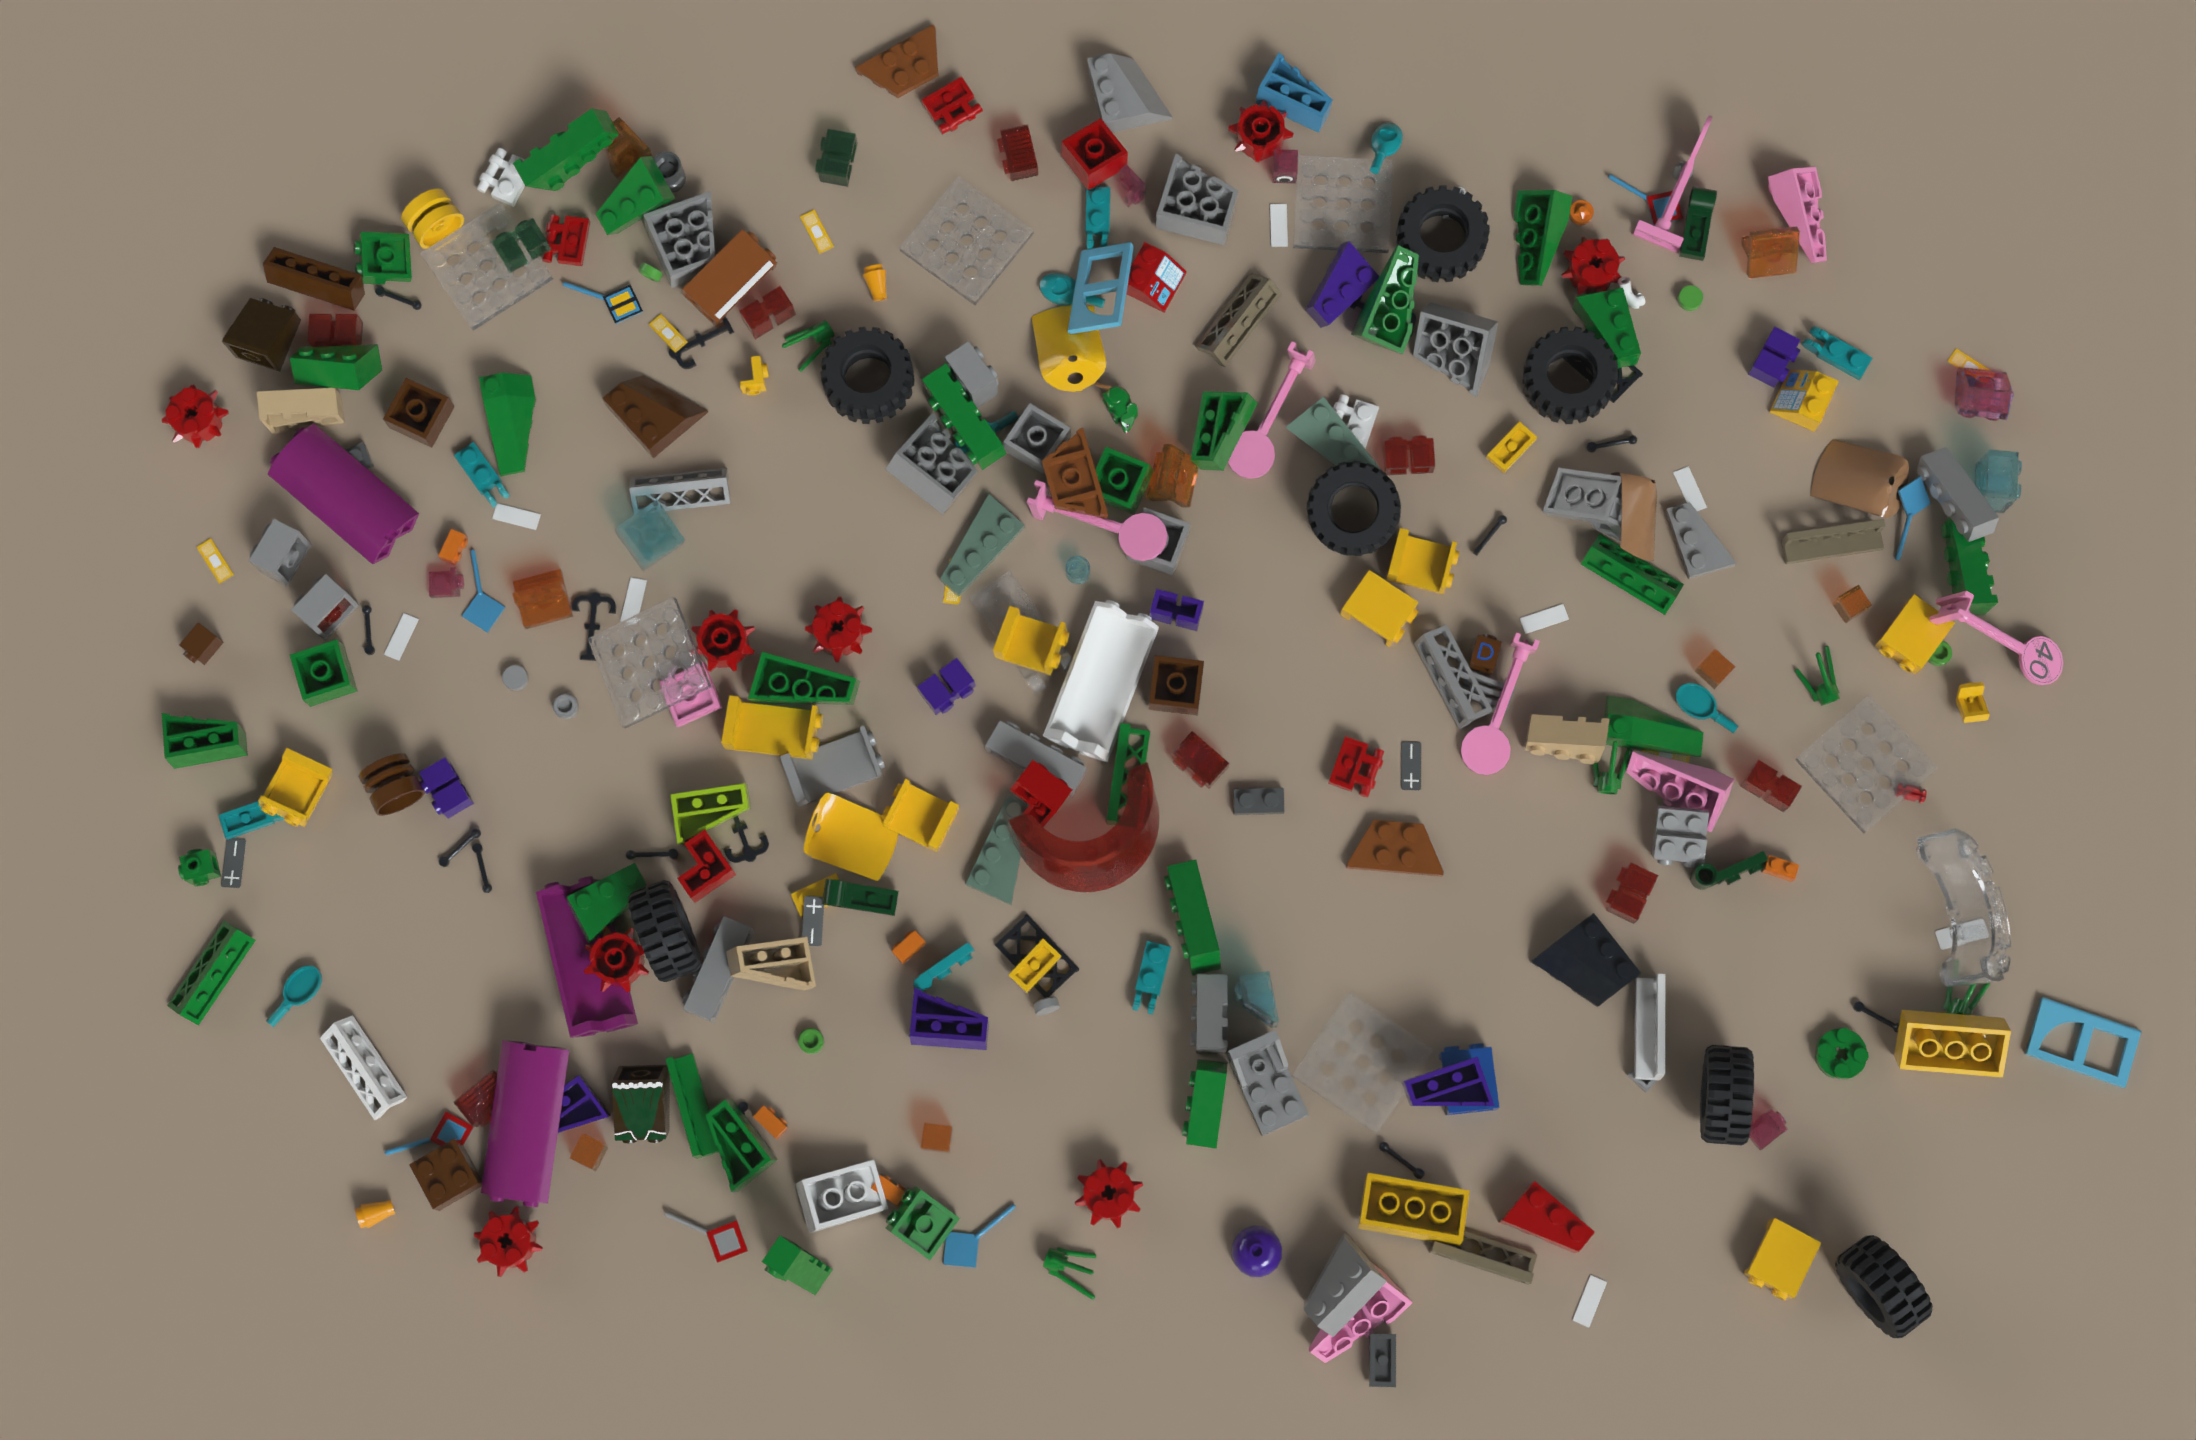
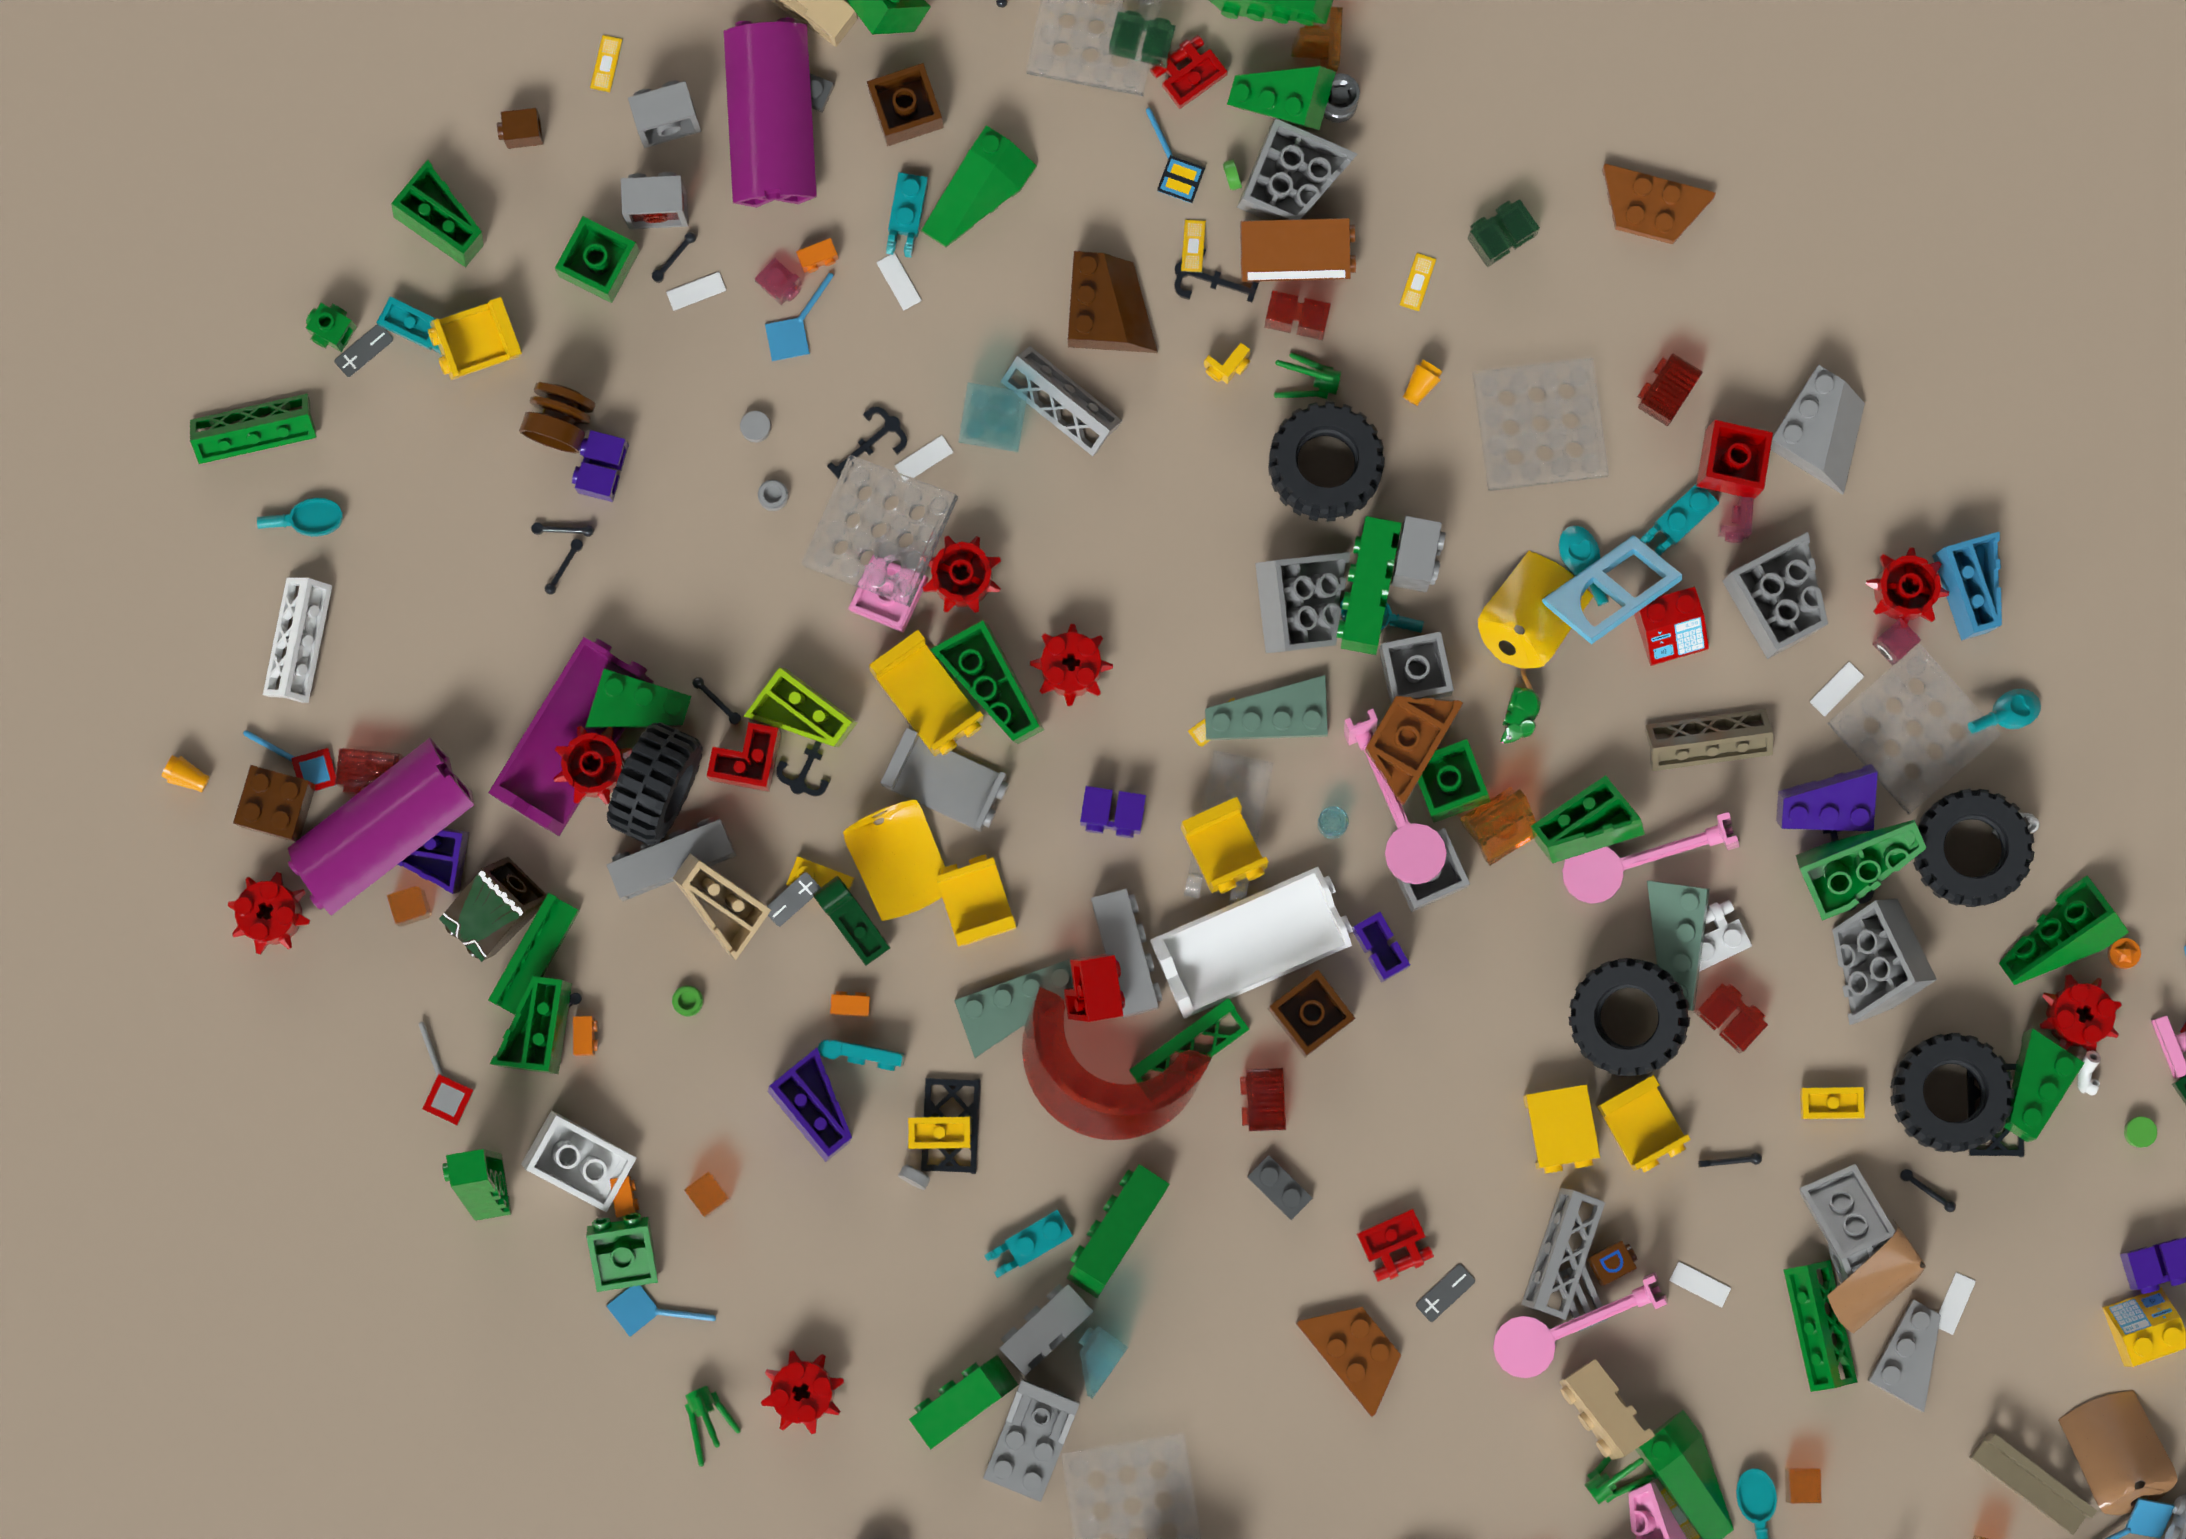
camera: 45 degrees right, 5 degrees up
(542, 599) = (847, 379): clear orange bracket -> none
(947, 100) = (1655, 276): red plate -> none

